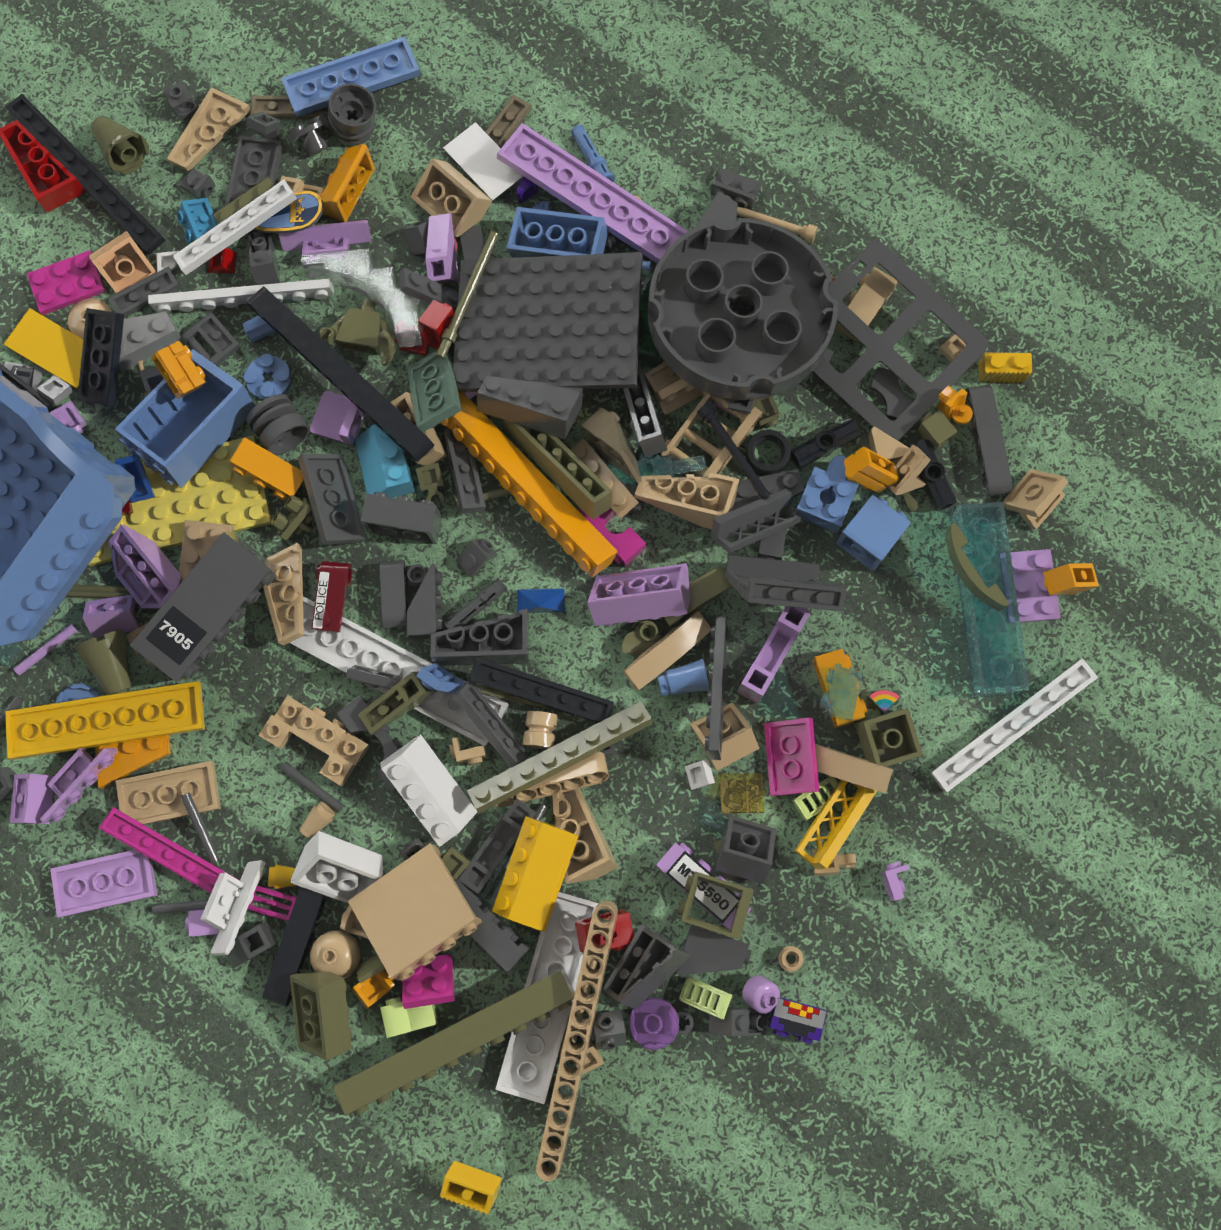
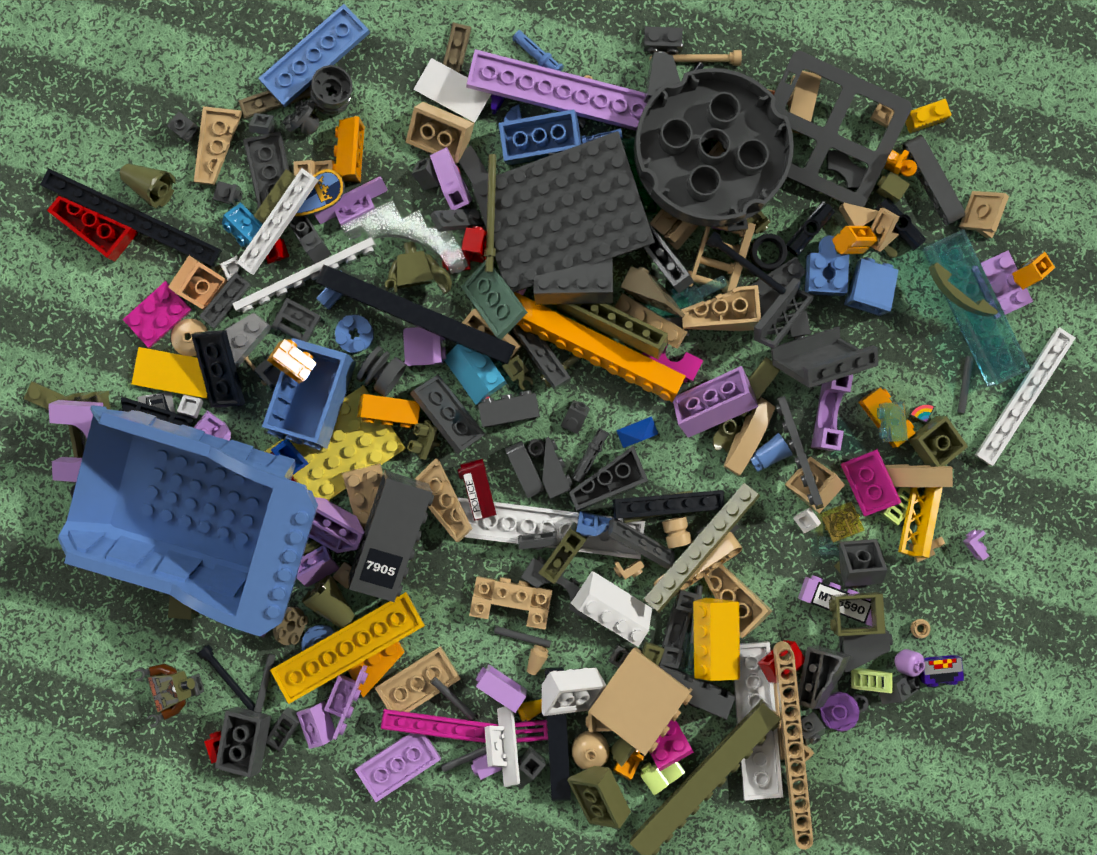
camera: 25 degrees left, 10 degrees up
(51, 670) = (291, 627): none -> dark tan plate
(259, 834) = (501, 688): none -> lavender window
(947, 686) = (965, 385): none -> dark grey bar

